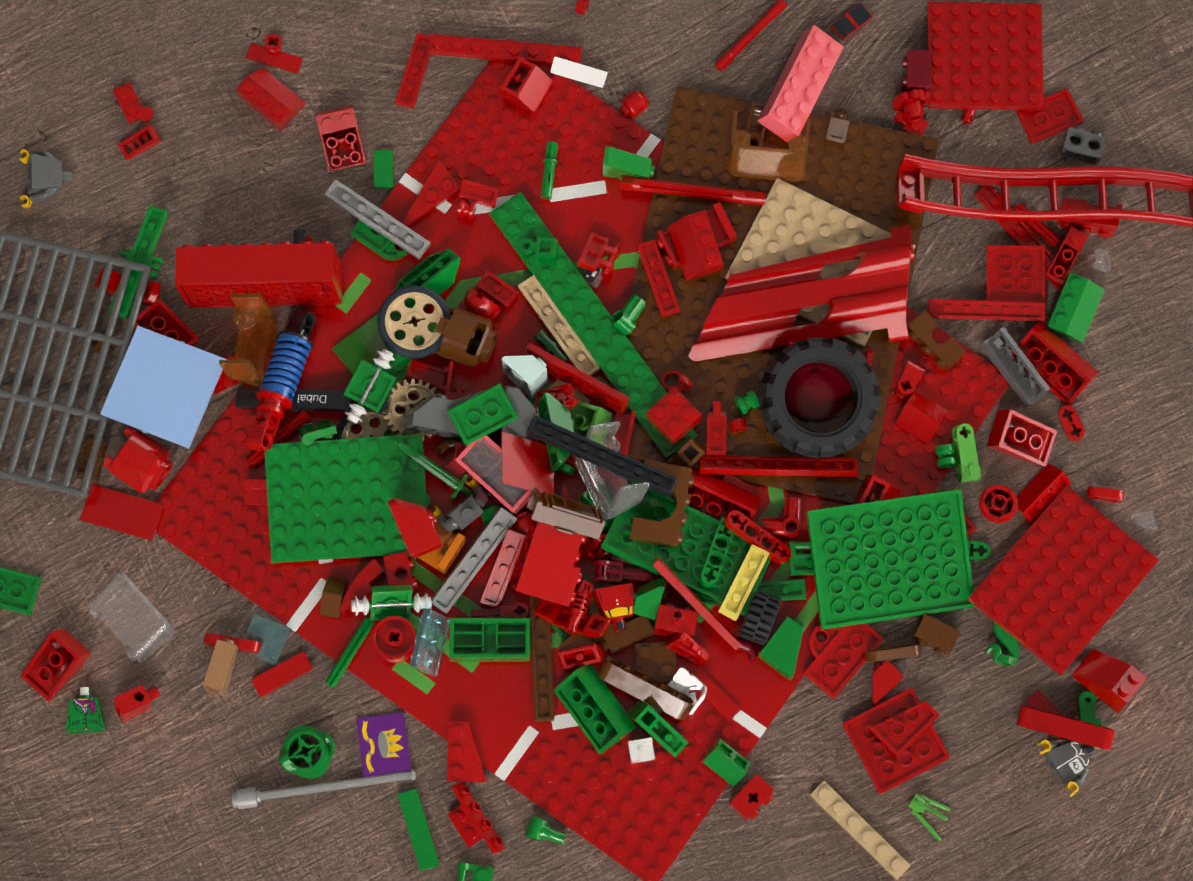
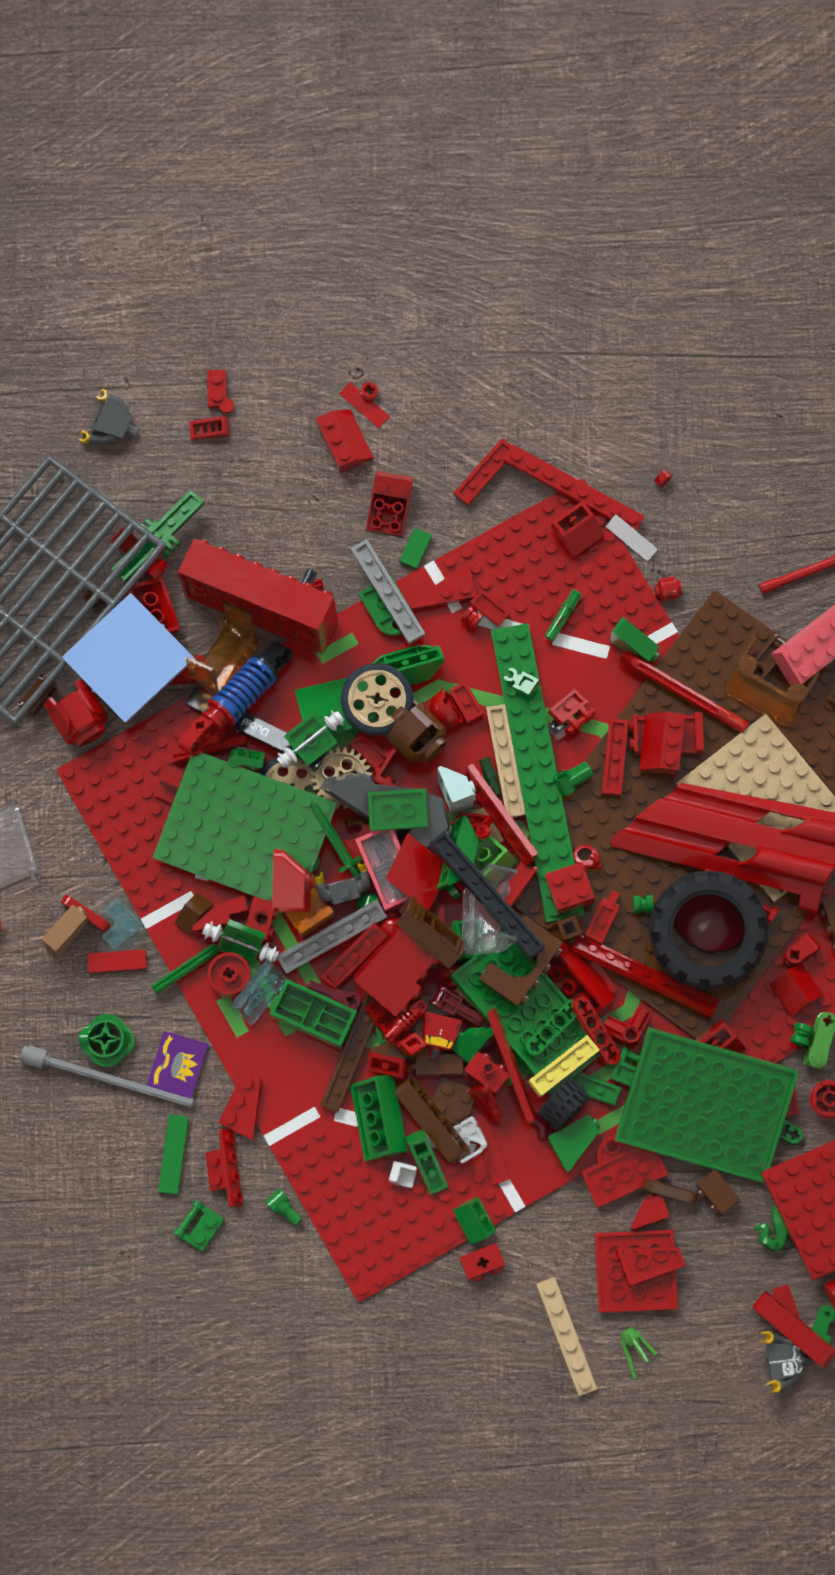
camera: 25 degrees right, 0 degrees up
(122, 512) = (42, 753): red piece -> none
(738, 425) = (625, 922): red axle -> none

